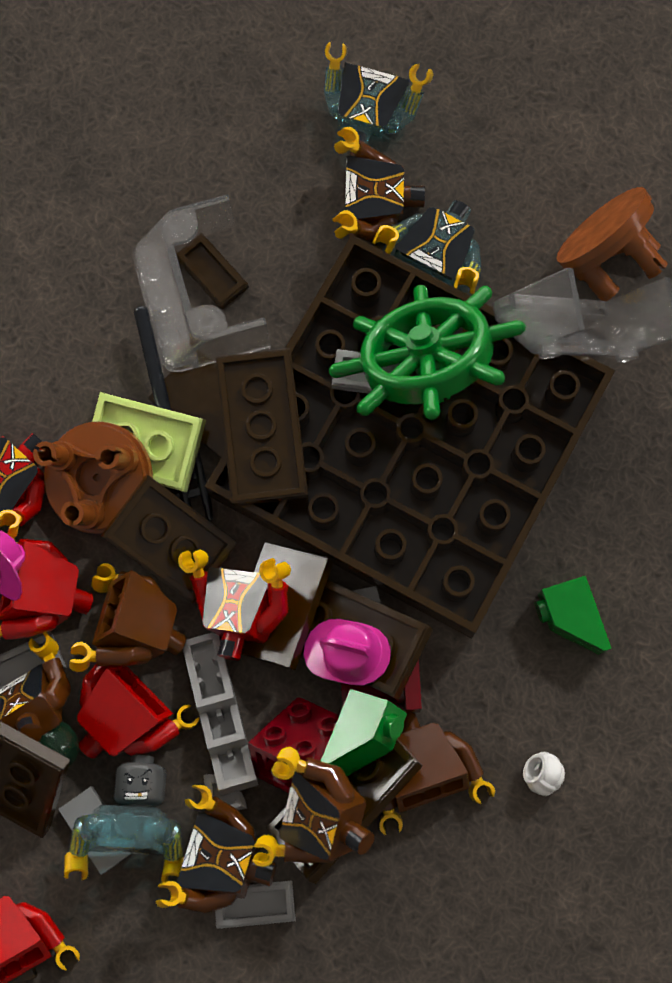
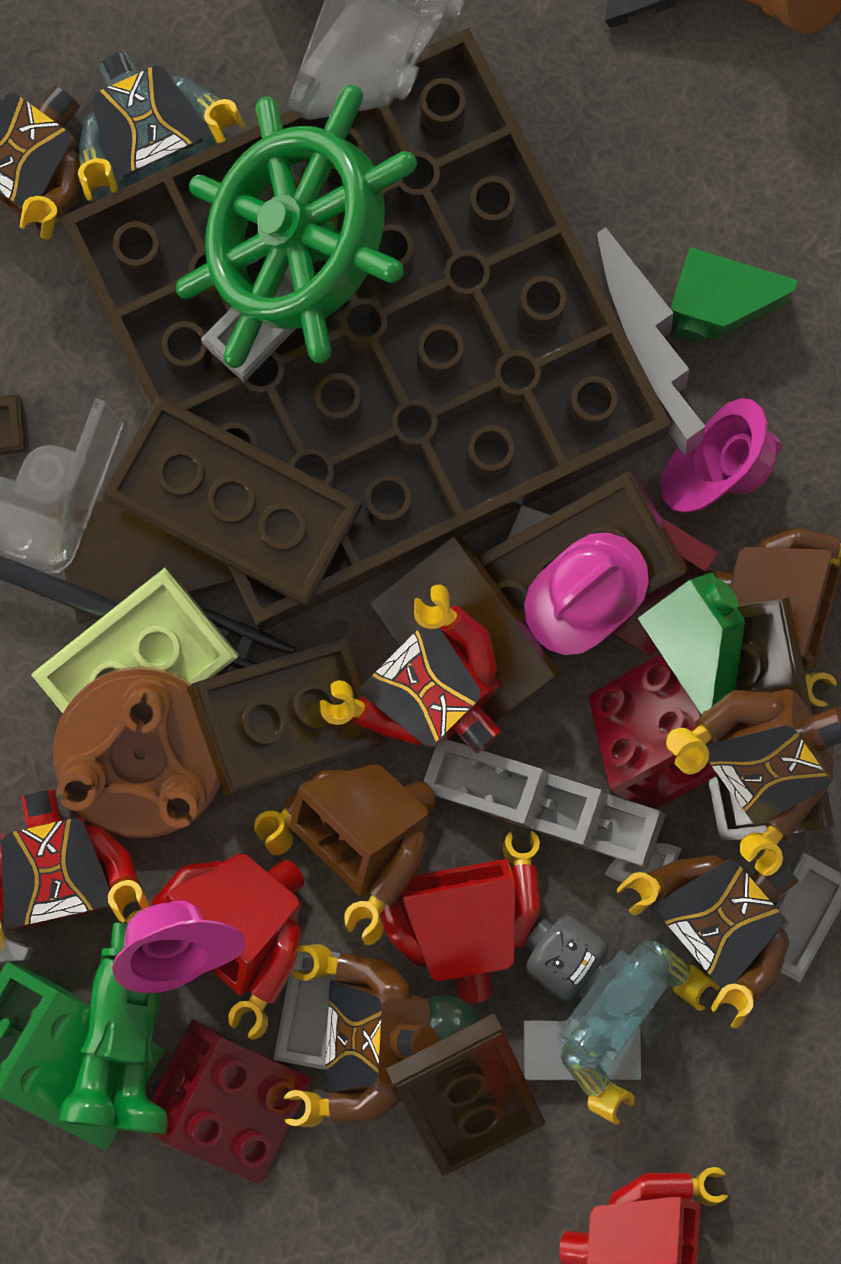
camera: 60 degrees left, 5 degrees up
(482, 677) = (732, 459): none -> dark pink piece
(522, 581) = (646, 323): none -> light grey slope

